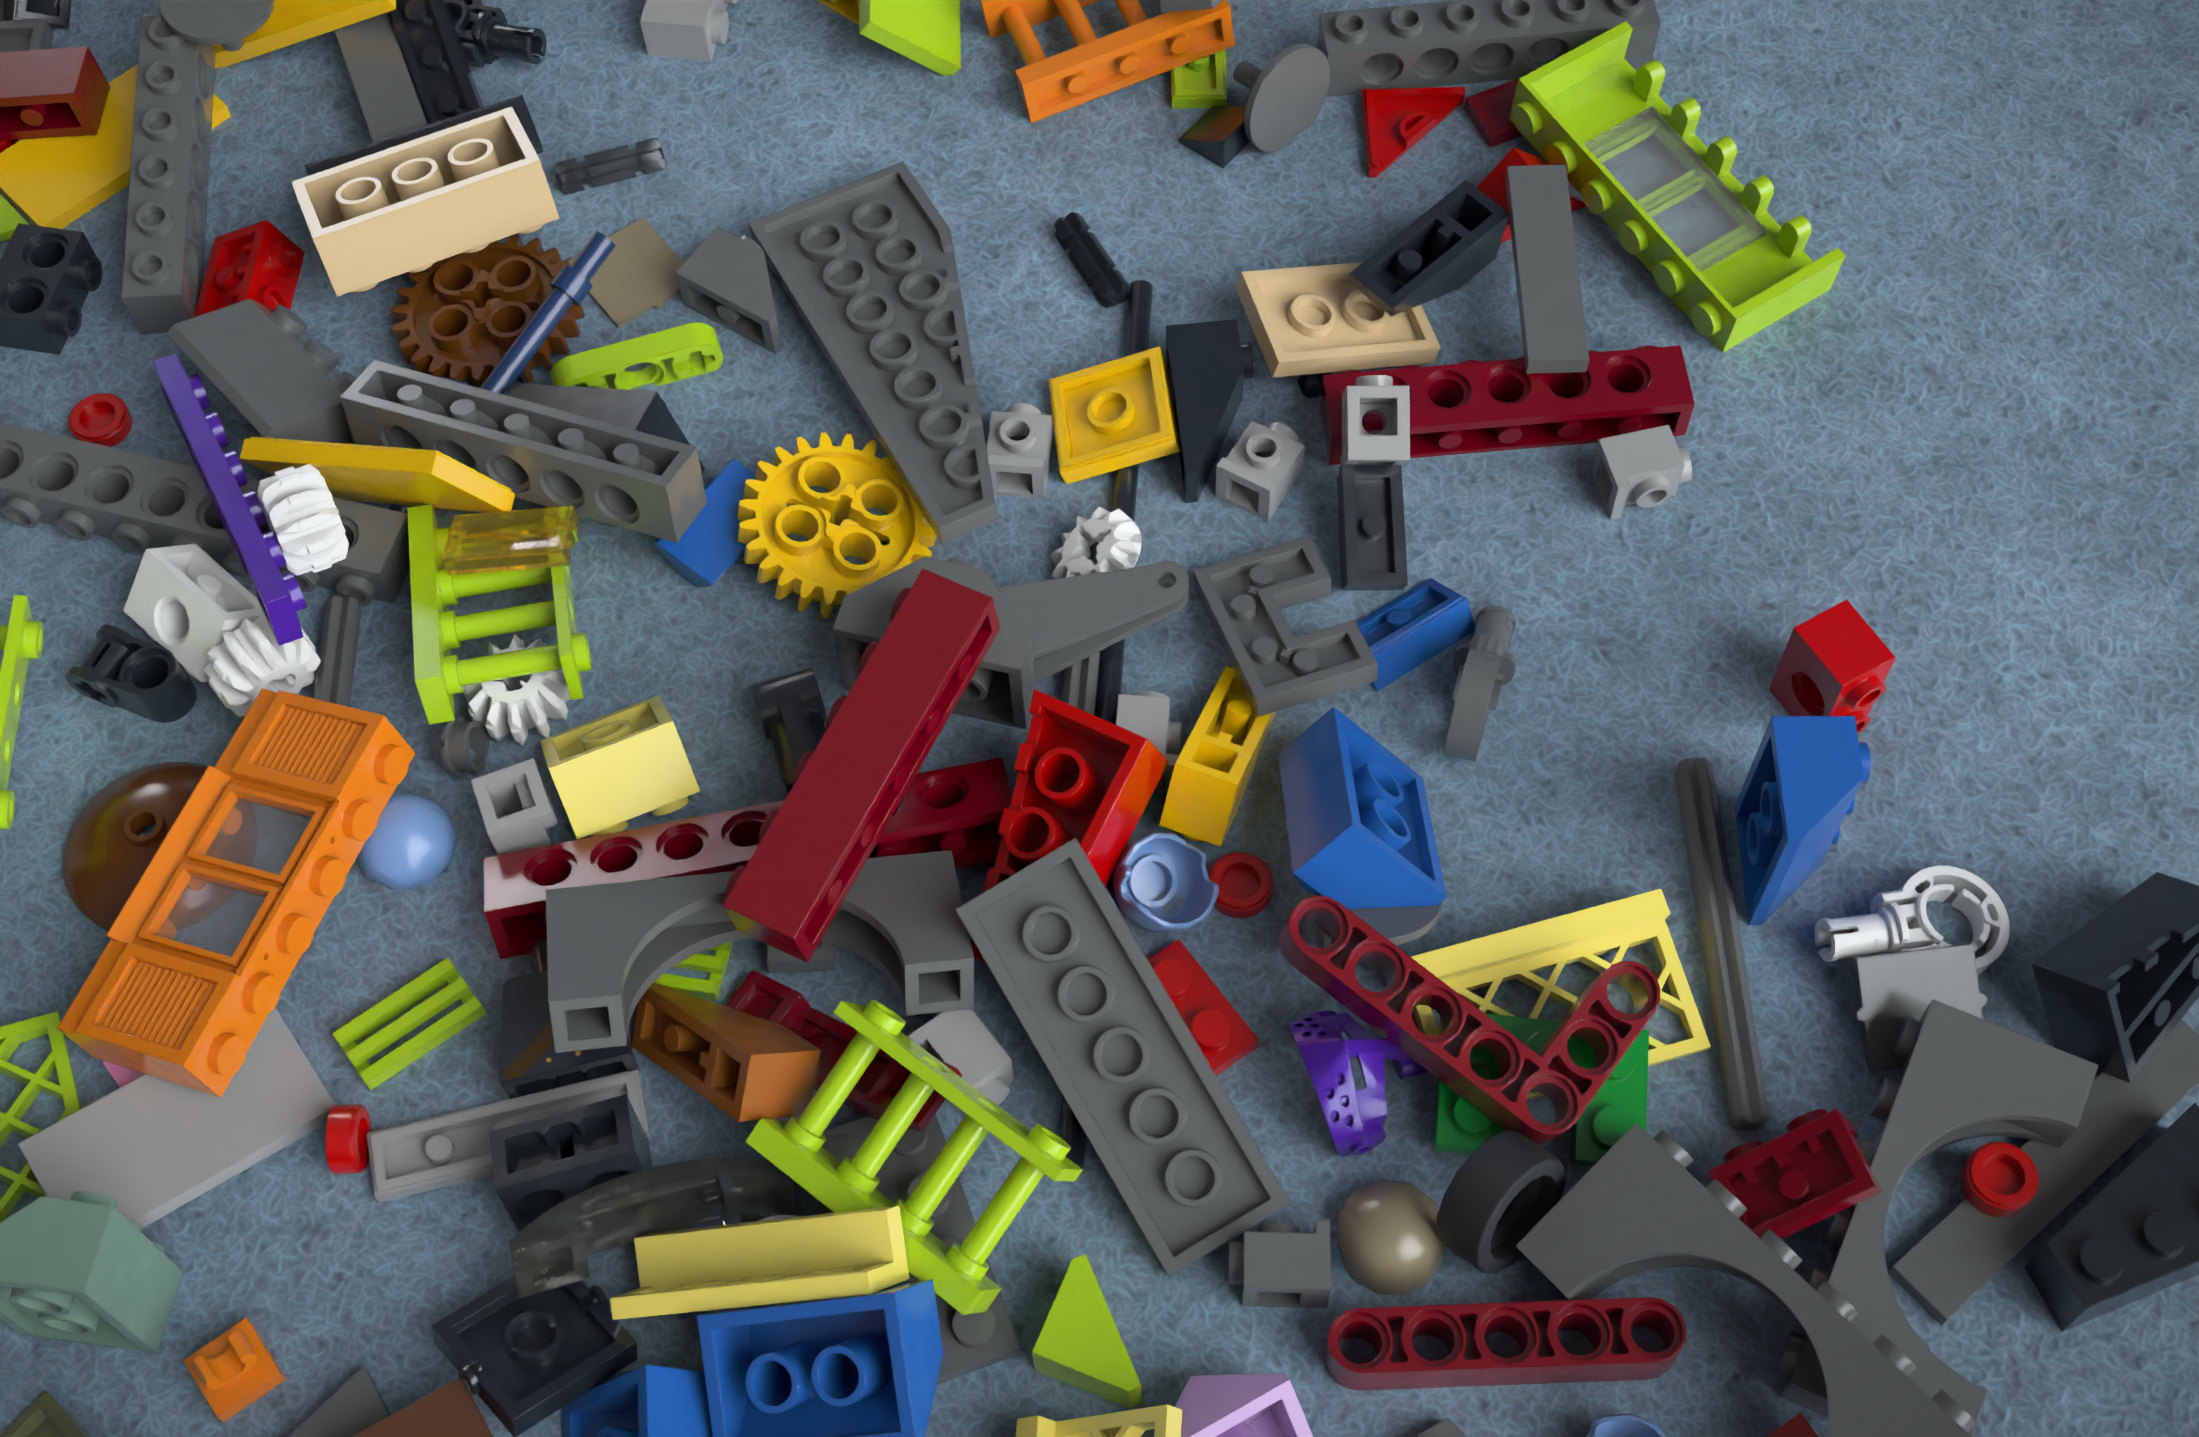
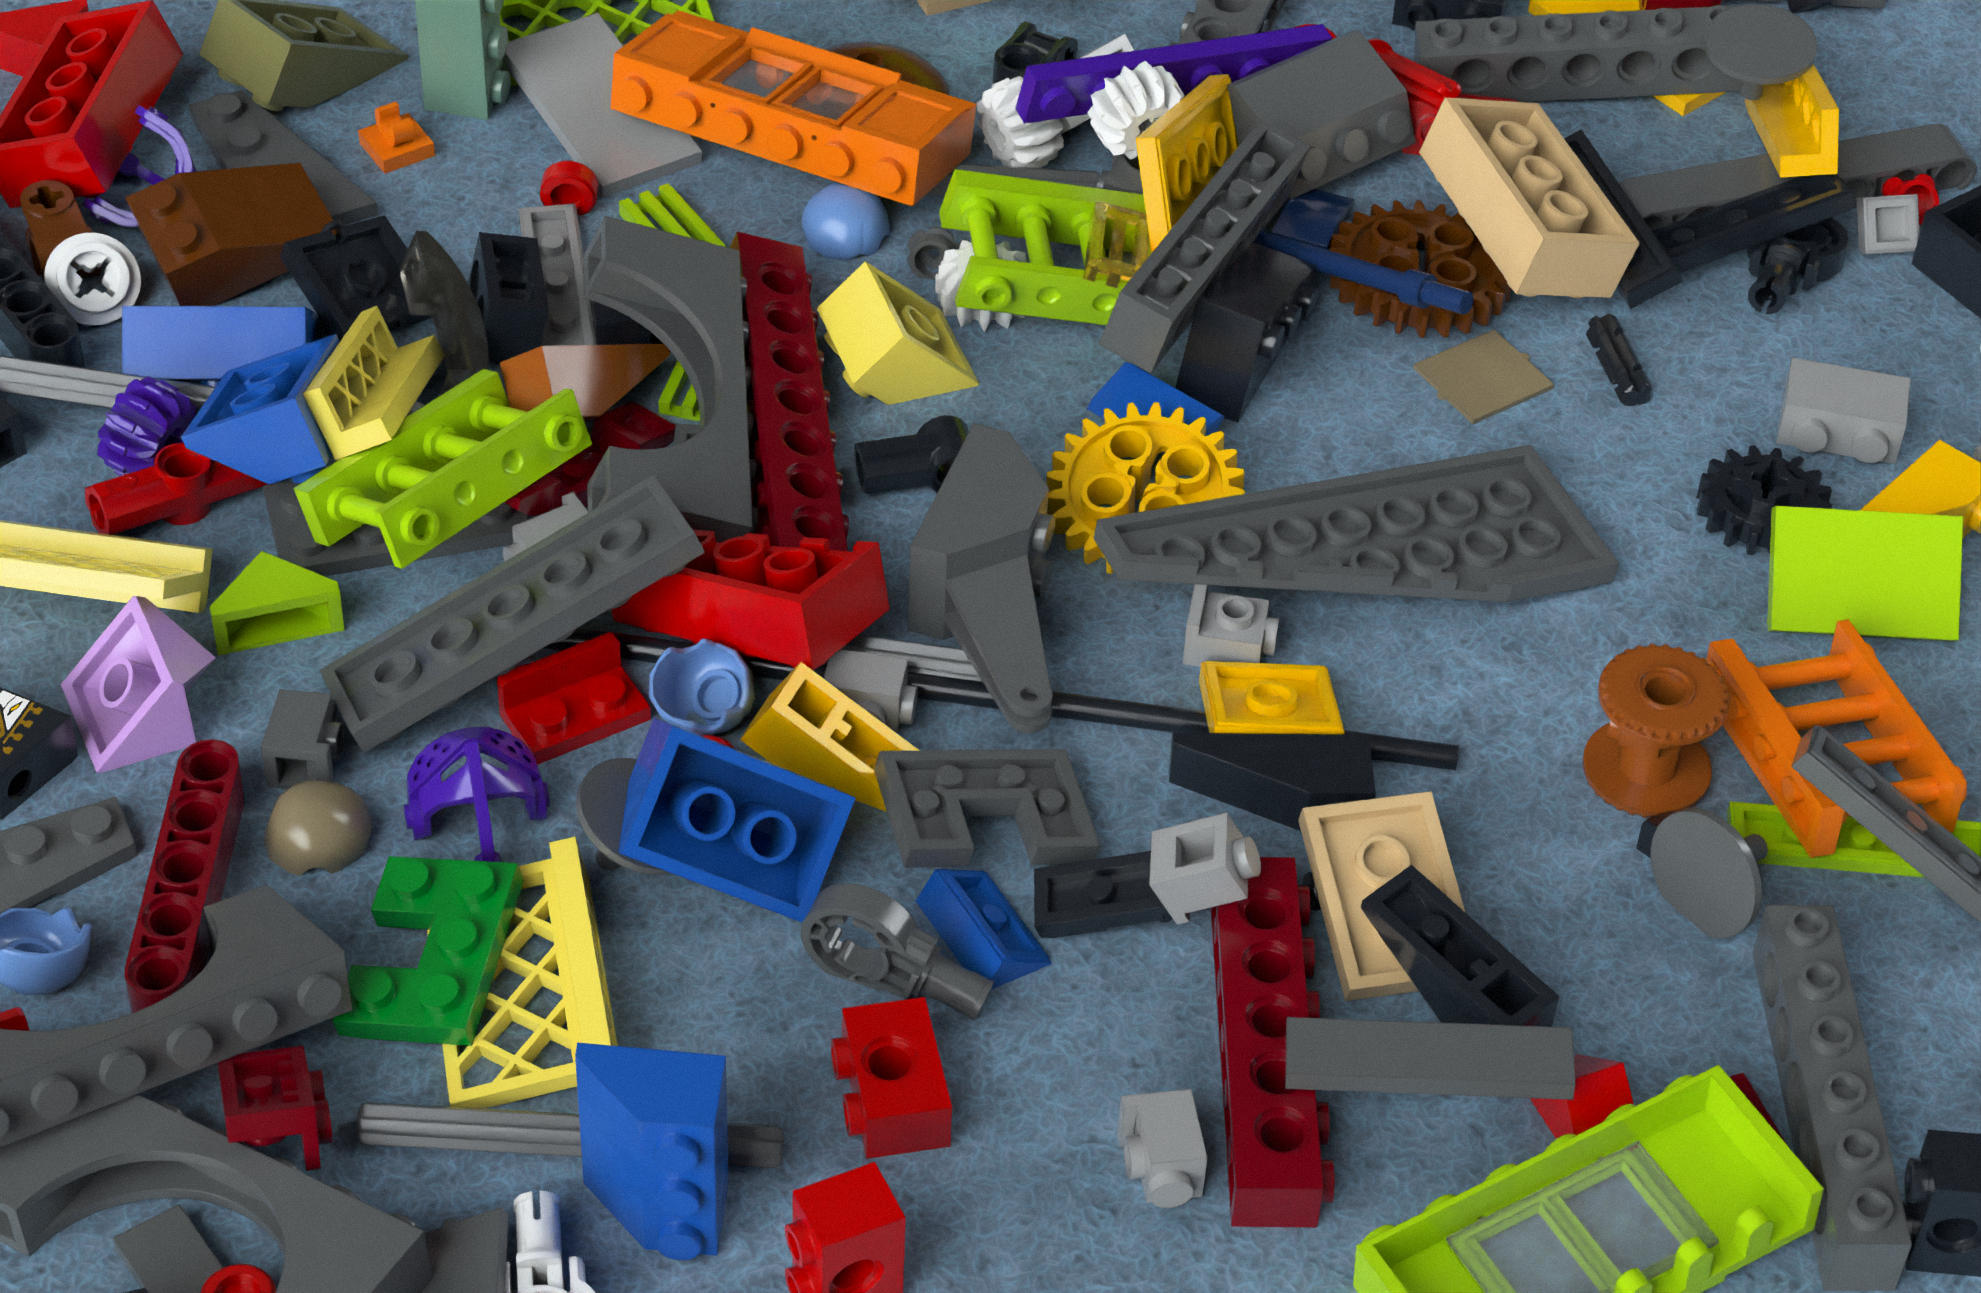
camera: 90 degrees right, 15 degrees down
(229, 287) = (1418, 80): none -> red axle
(515, 807) = (831, 273): light grey brick -> none
(672, 357) = (1355, 365): lime beam -> none
(732, 287) = (1447, 425): dark grey slope -> none
(808, 61) = (1744, 490): none -> black gear
(861, 765) = (818, 425): dark red brick -> none
(1091, 260) = (1494, 716): black axle -> none
(1117, 547) = (1096, 678): white gear -> none
(1132, 110) = (1658, 713): none -> dark orange hose
(1260, 468) = (1185, 798): light grey brick -> none
(1400, 118) = (1711, 1010): red tile -> none
(1467, 1027) = (417, 872): dark red beam -> none
(1498, 1200) = (327, 848): black tyre -> none
(1632, 650) = (894, 1078): none -> red brick

